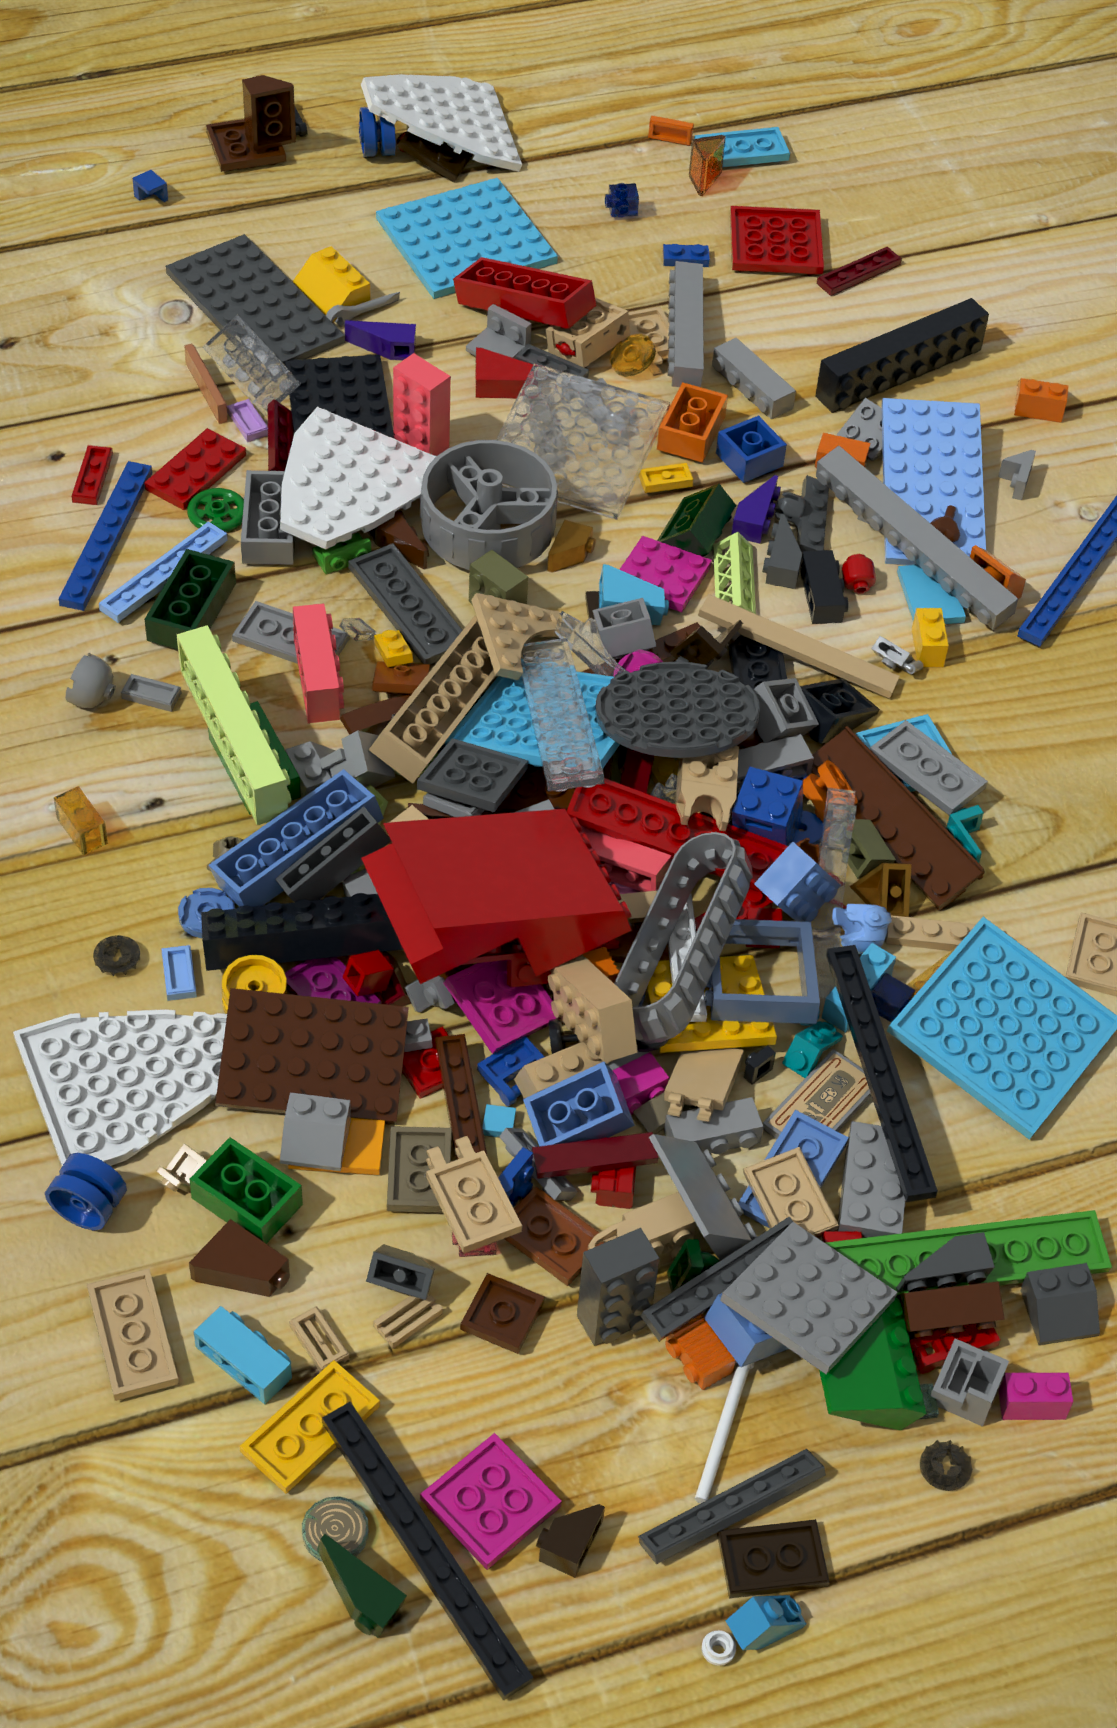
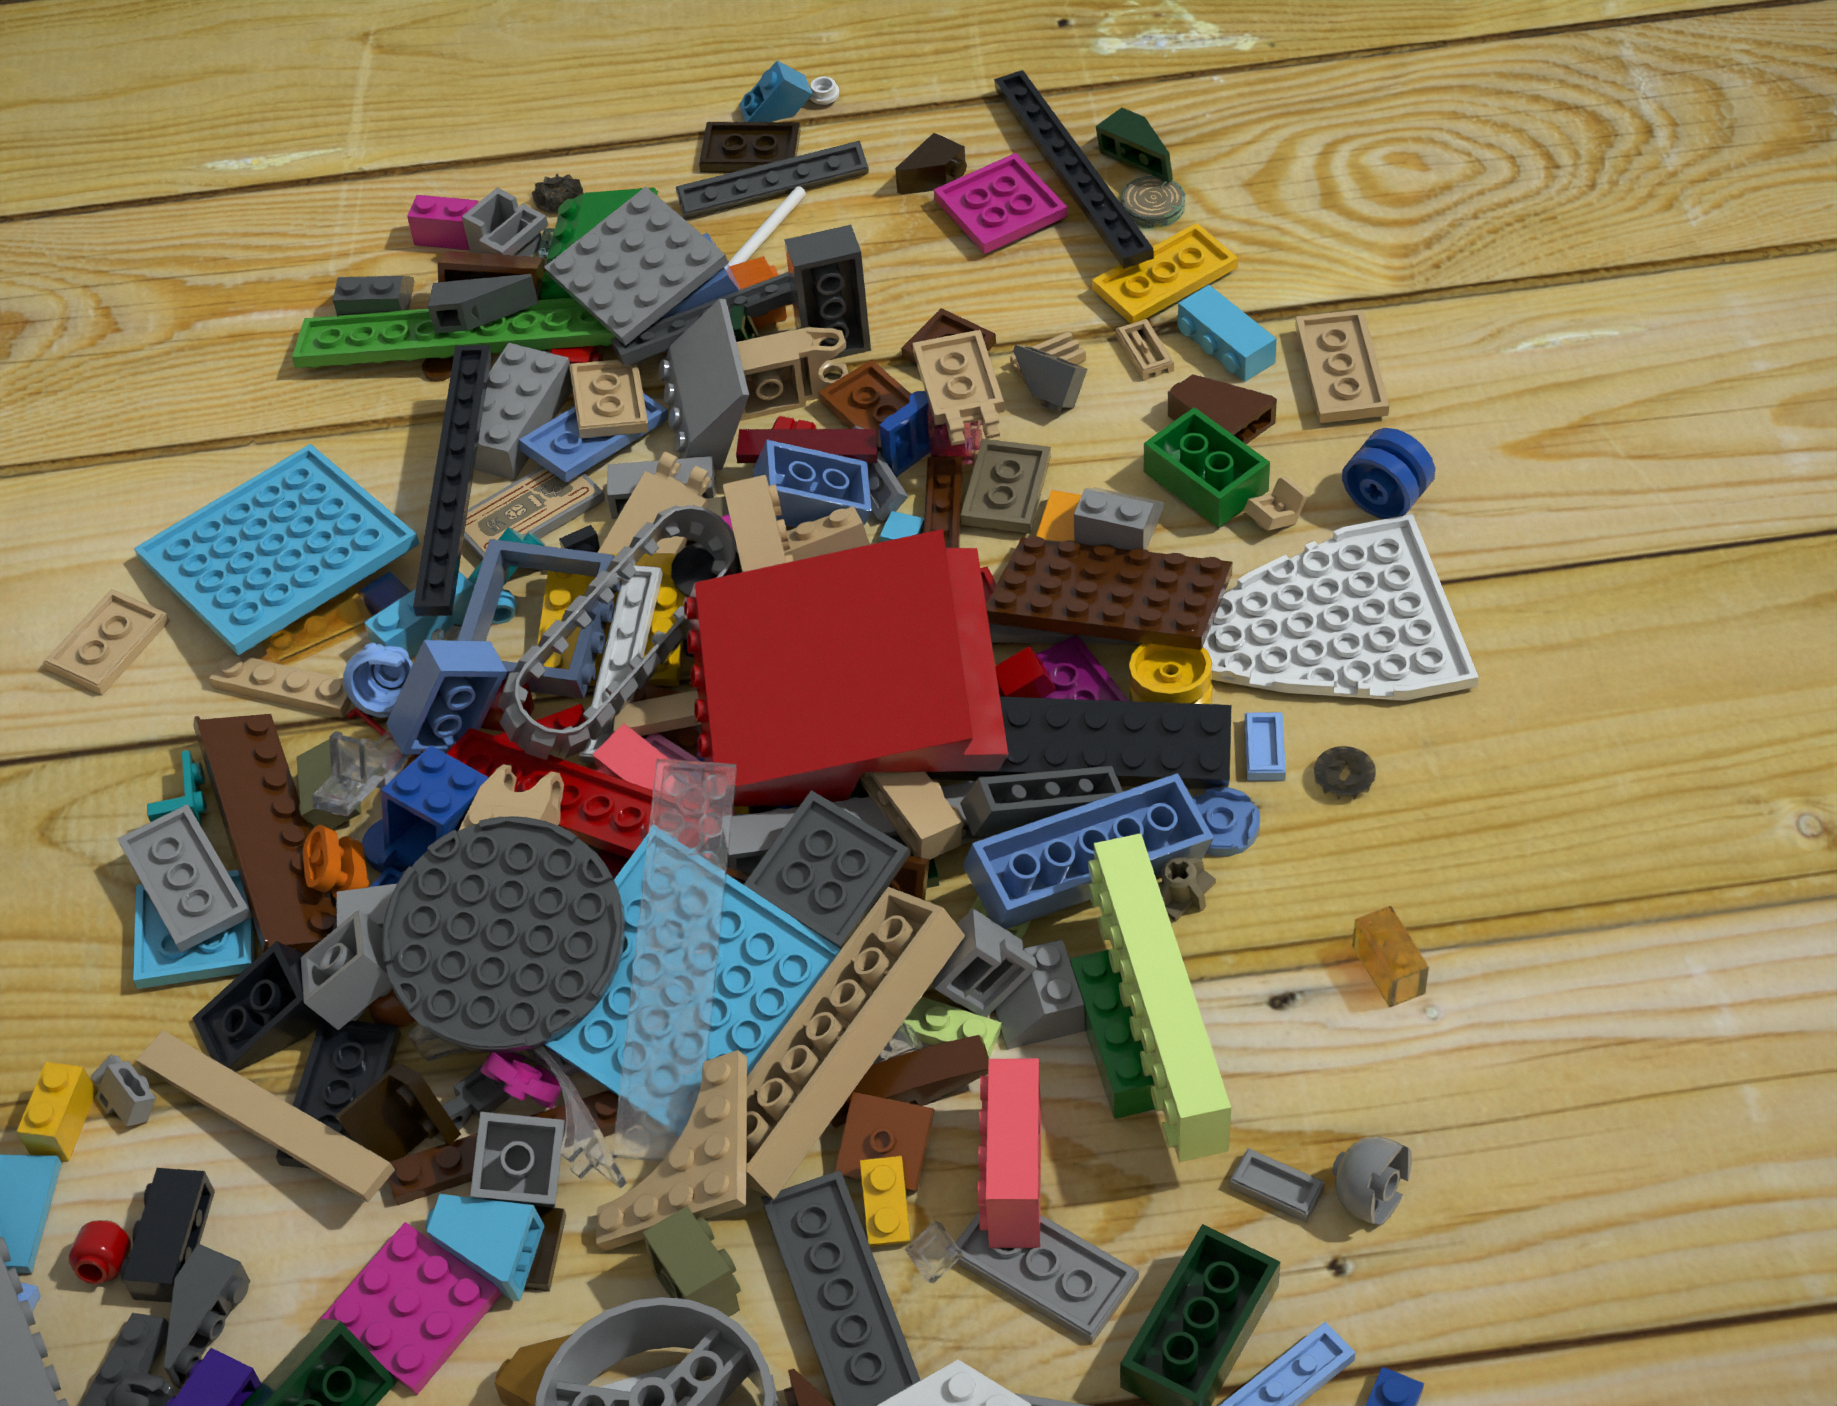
camera: 160 degrees left, 0 degrees up
(739, 573) = (287, 1268): yellowish green fence -> none
(886, 887) = (315, 728): pearl gold slope -> none

